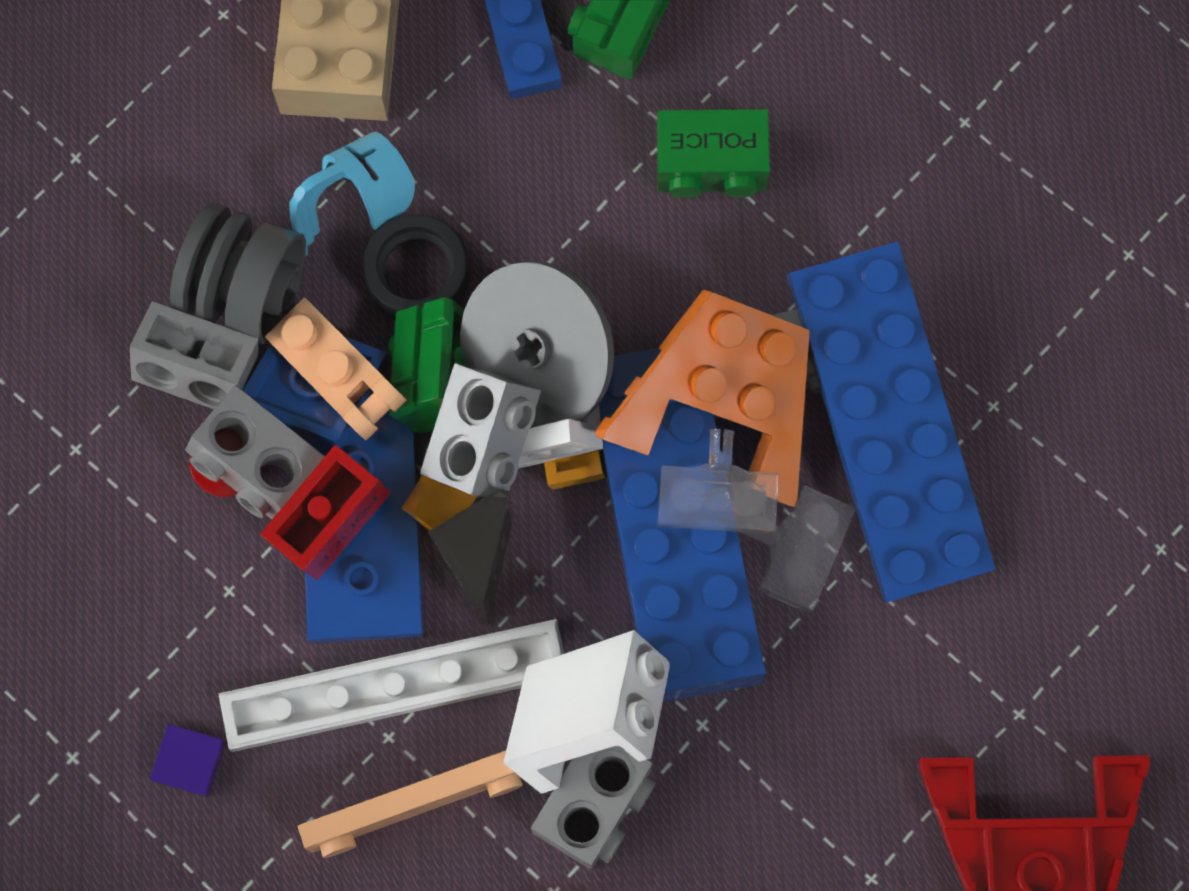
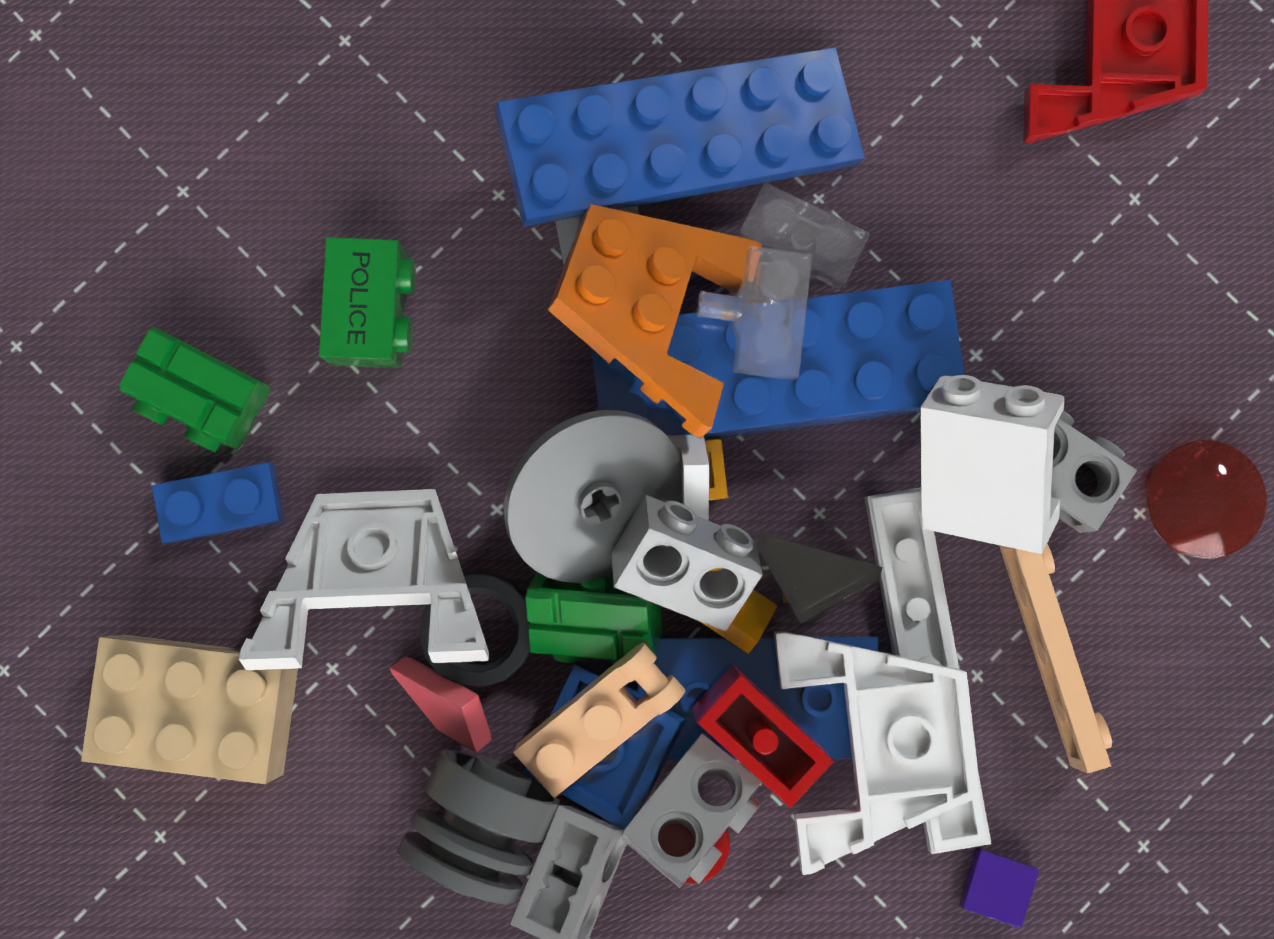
camera: 85 degrees left, 10 degrees up
(328, 654) = (906, 742): none -> white wing
(341, 249) = (445, 703): none -> coral tile
(383, 198) = (402, 663): medium azure helmet -> none
(480, 167) = (369, 554): none -> white wing

